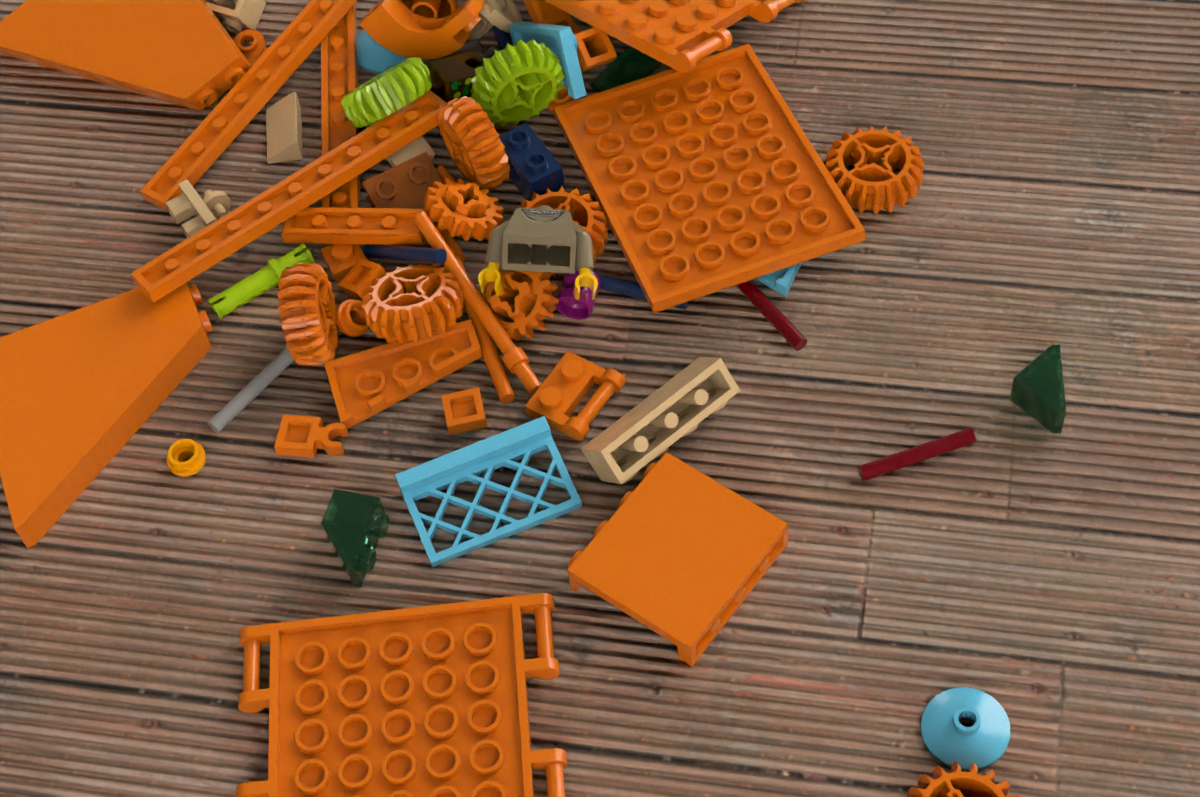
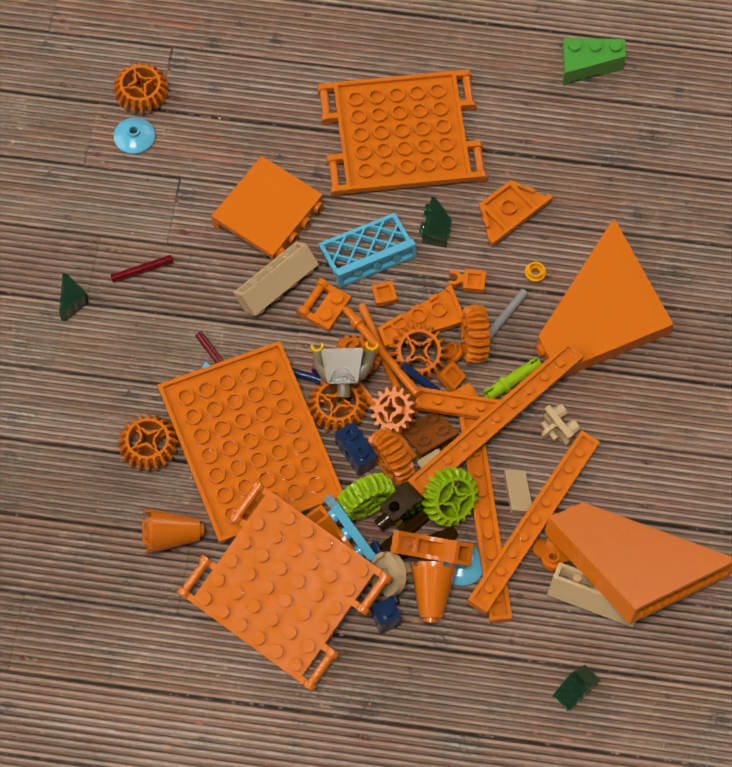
camera: 170 degrees right, 10 degrees up
(208, 569) = (509, 209): none -> orange wing
(826, 48) = (169, 530): none -> orange cone

